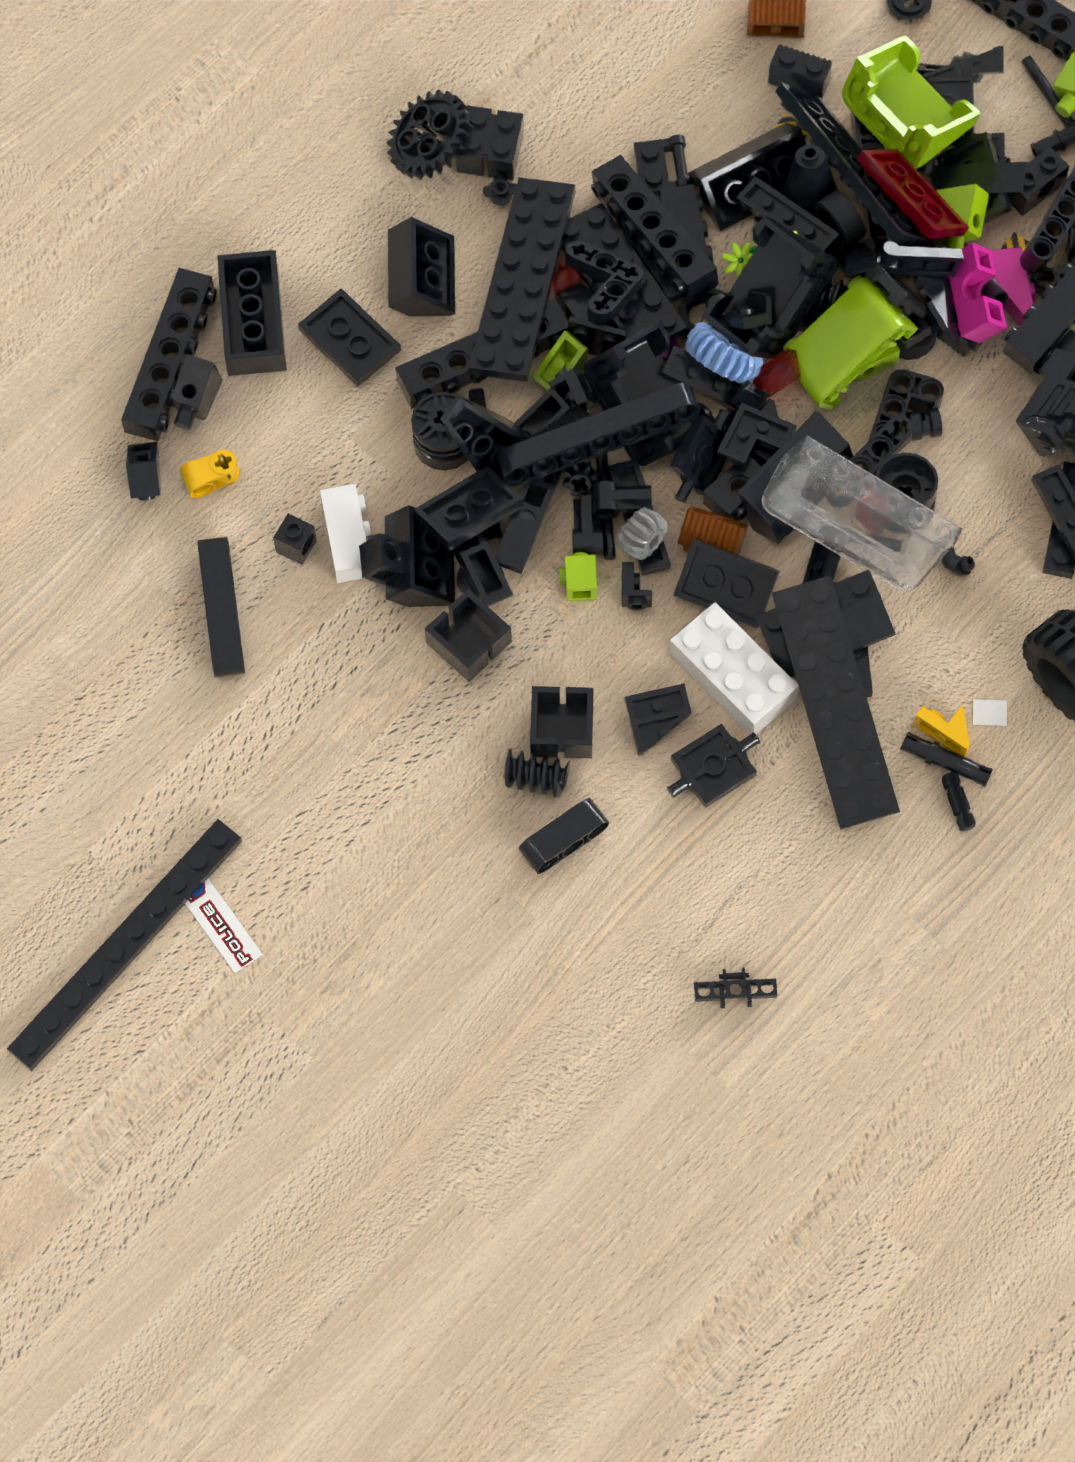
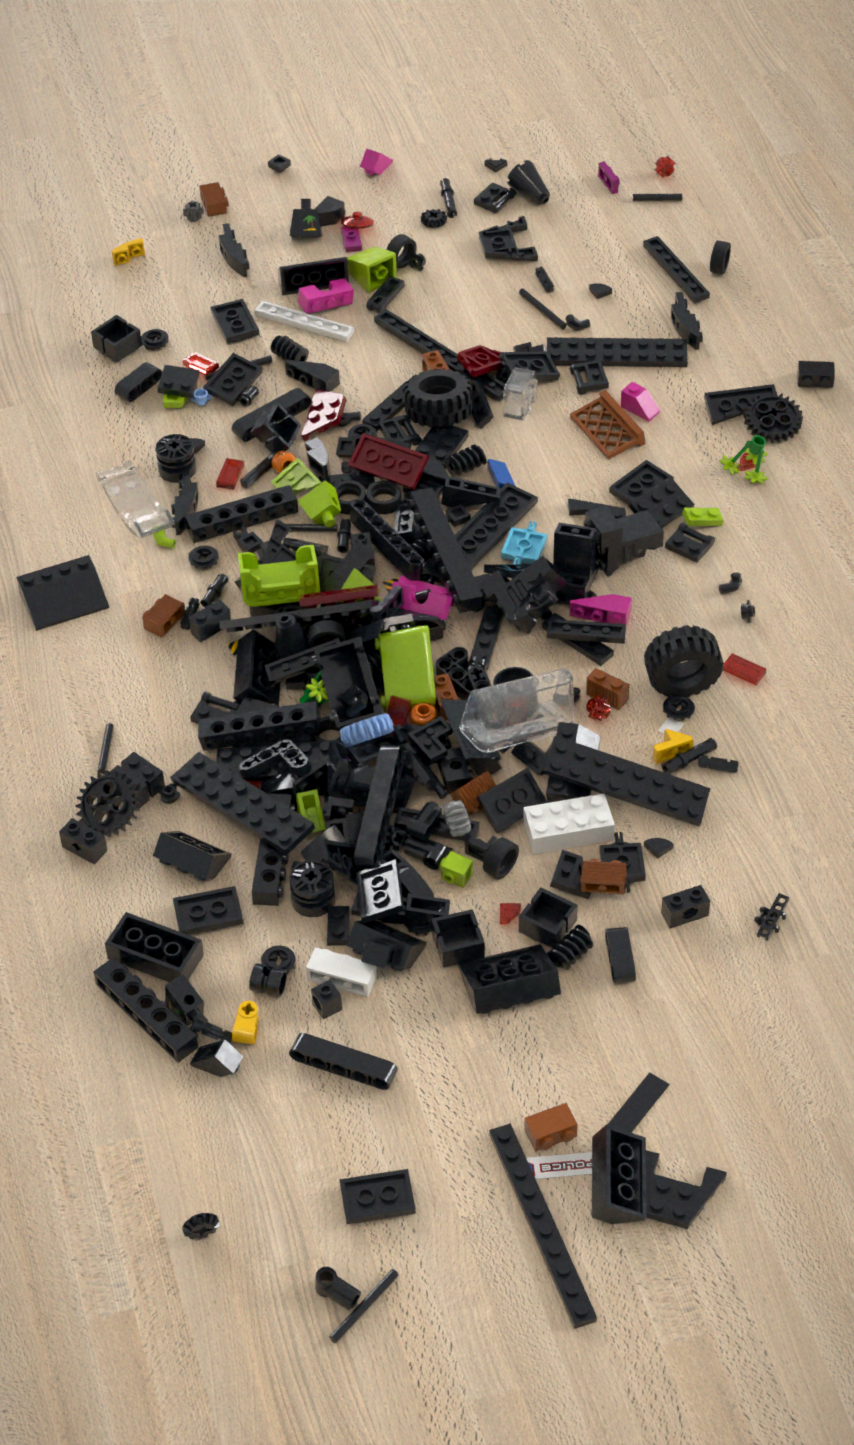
camera: 60 degrees left, 20 degrees down
(58, 745) = (377, 1196): none -> black plate
(175, 439) = (211, 1030): none -> black axle
(230, 997) = (618, 1176): none -> black slope
(239, 1072) = (675, 1200): none -> black wing
(258, 886) = (550, 1127): none -> dark orange brick
(284, 459) = (268, 980): none -> black wheel
(329, 443) = (286, 955): none -> black gear
(355, 969) = (639, 1103): none -> black sticker
(365, 142) = (83, 841): none -> black brick
(418, 488) = (338, 925): none -> black plate
(450, 725) = (510, 979): none -> black slope
(519, 407) = (313, 850): none -> black slope
(527, 81) = (105, 748): none -> black bar
(555, 673) = (508, 912): none -> clear red tile
(622, 618) = (500, 858): none -> black tyre
(663, 754) = (603, 877): none -> dark orange brick
(684, 875) = (685, 906): none -> black brick
(771, 796) = (658, 846): none -> black tile
(796, 405) = (422, 714): none -> orange head
(808, 40) = (190, 609): none -> black axle
(854, 408) = (443, 690): none -> dark orange brick
(855, 47) = (214, 590): none -> black pin
(953, 606) = (598, 708): none -> clear red gear
(971, 35) = (248, 542): none -> black plate
(986, 410) = (488, 633): none -> black plate
(994, 600) = (609, 687): none -> dark orange brick
(1002, 105) = (294, 544): none -> black plate
(1032, 695) = (673, 702): none -> black gear

